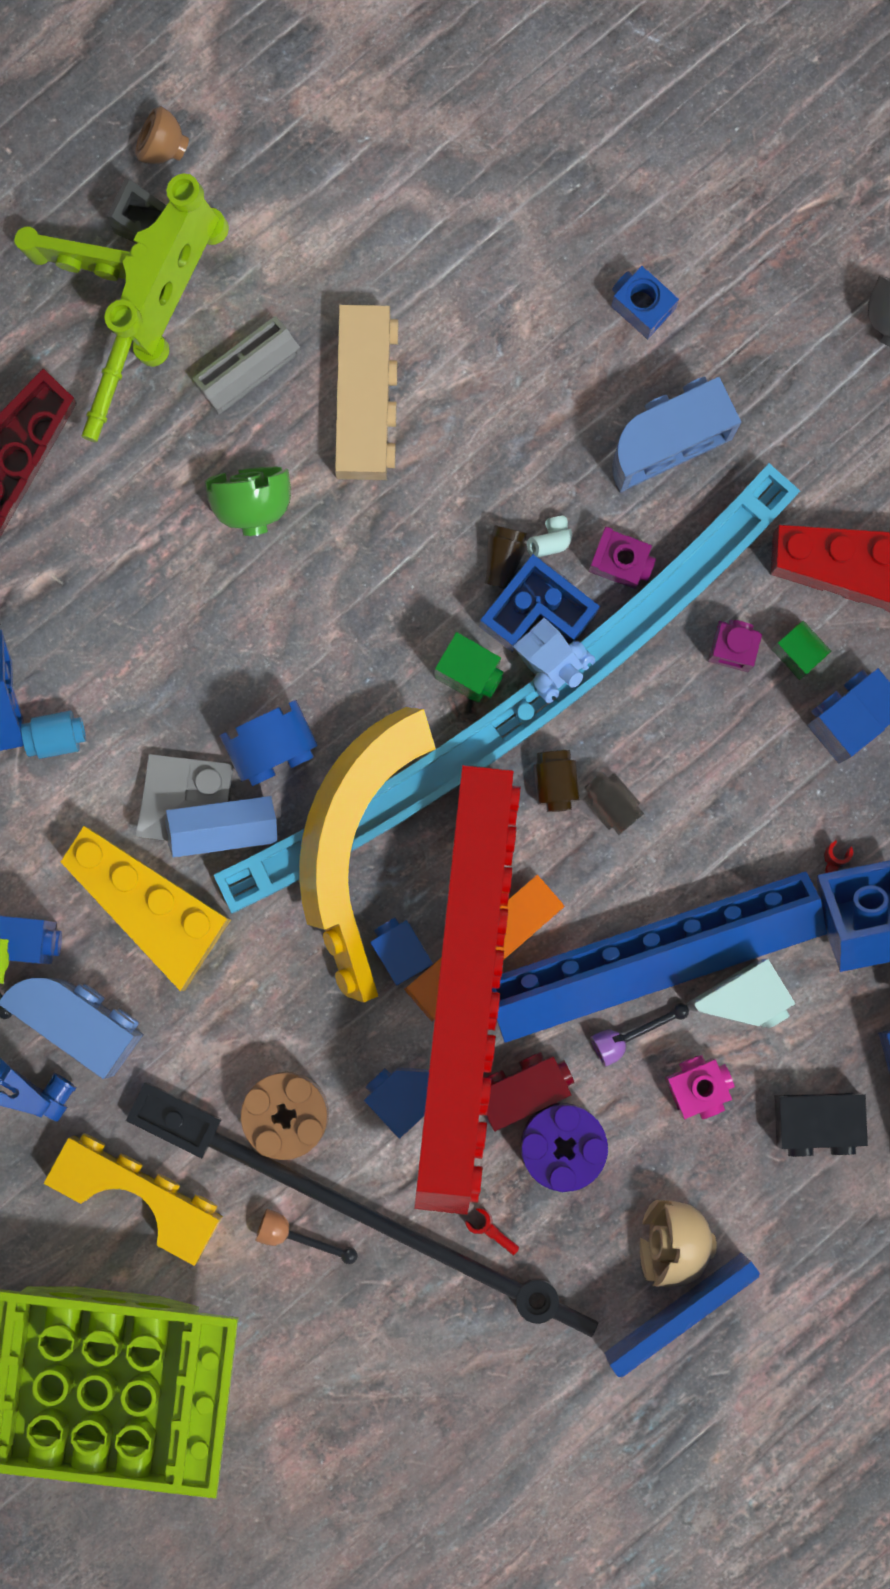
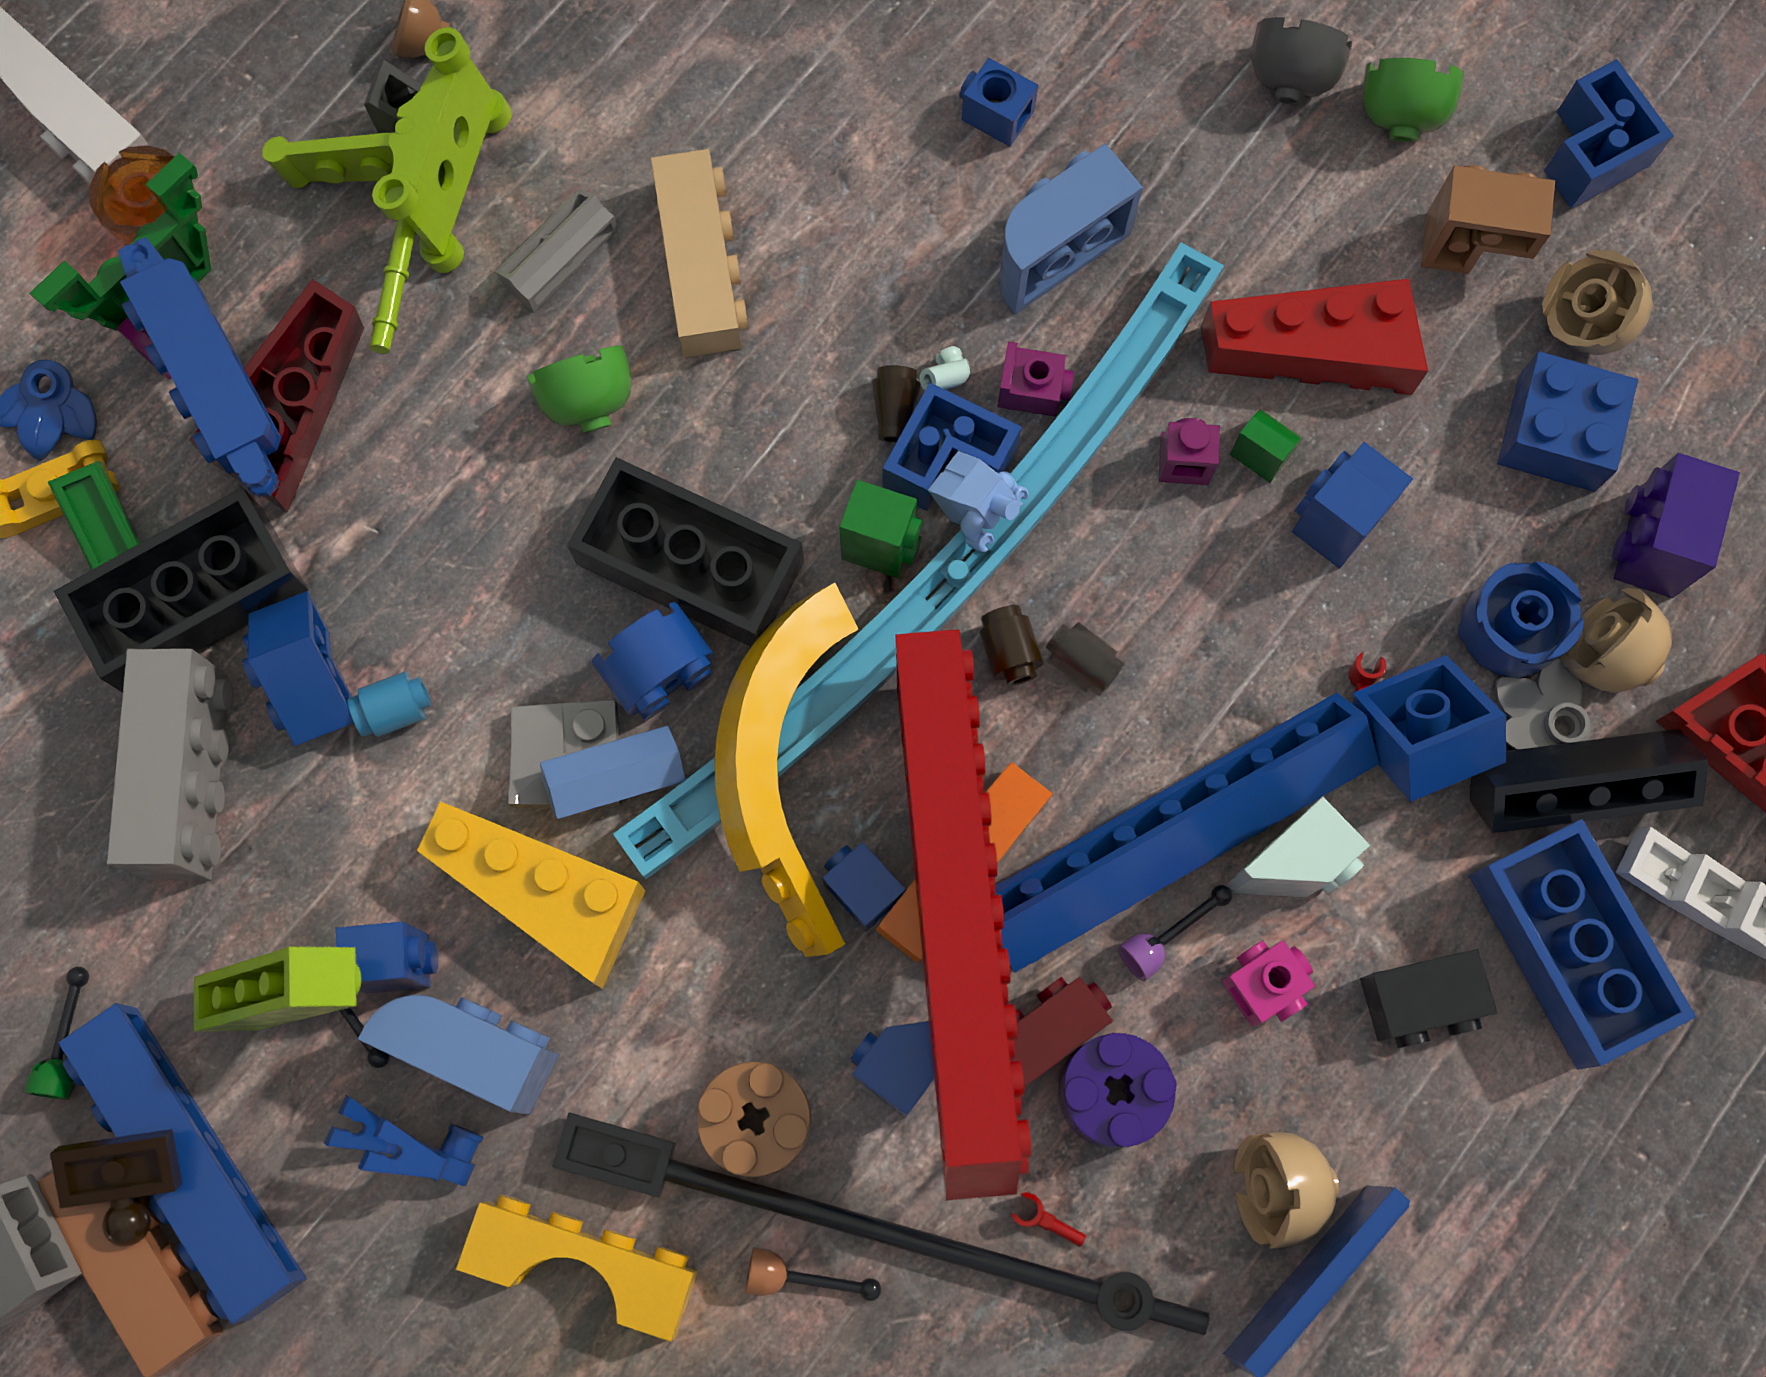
camera: 10 degrees left, 10 degrees down
(310, 656) = (686, 552): none -> black brick

